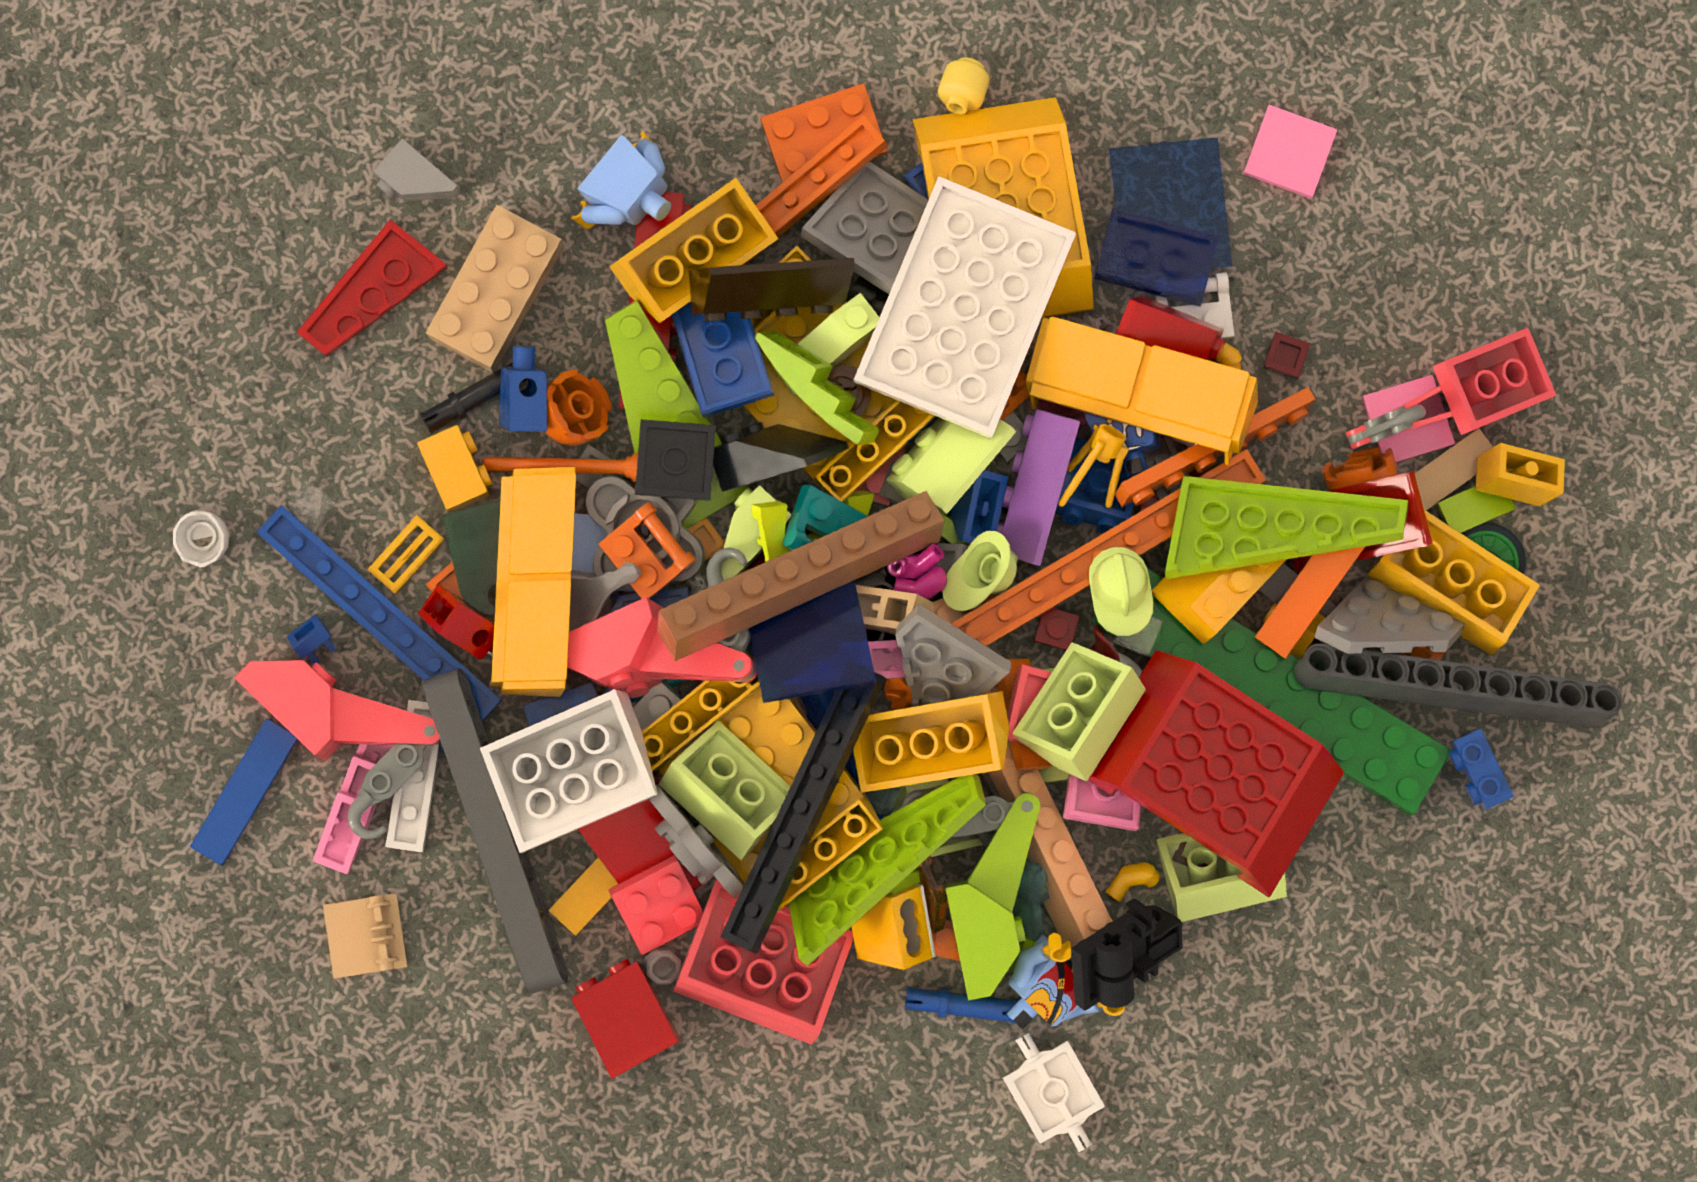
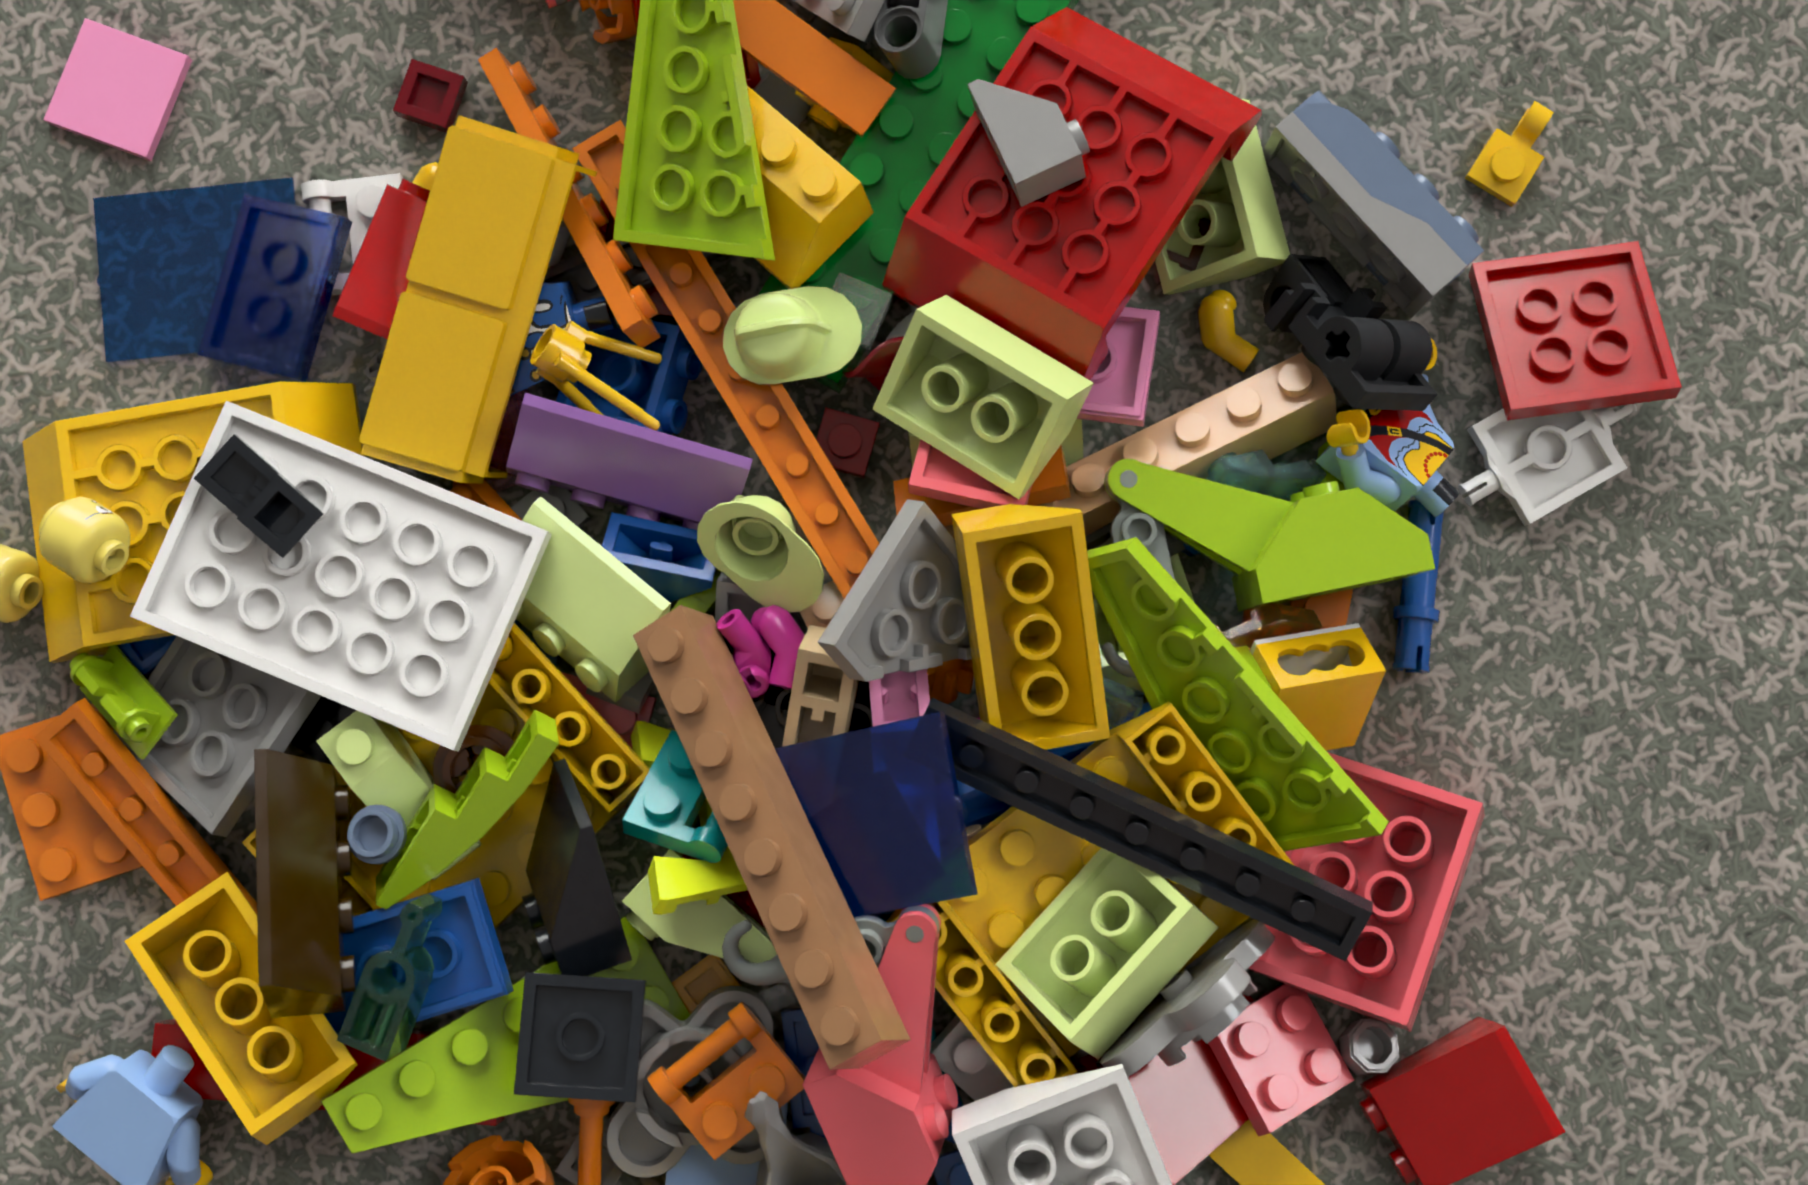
camera: 85 degrees left, 0 degrees up
(693, 337) = (381, 1005): none -> clear green piece
(801, 331) = (377, 834): none -> sand blue plate
(888, 168) = (123, 698): none -> lime hinge
(987, 146) = (84, 539): none -> light yellow head
(1014, 256) = (259, 495): none -> black slope
(1131, 1108) = (1573, 331): none -> plate
(1214, 974) = (1371, 201): none -> light grey piece
(1241, 740) = (1030, 140): none -> light grey slope
(1248, 1070) = (1507, 160): none -> yellow plate

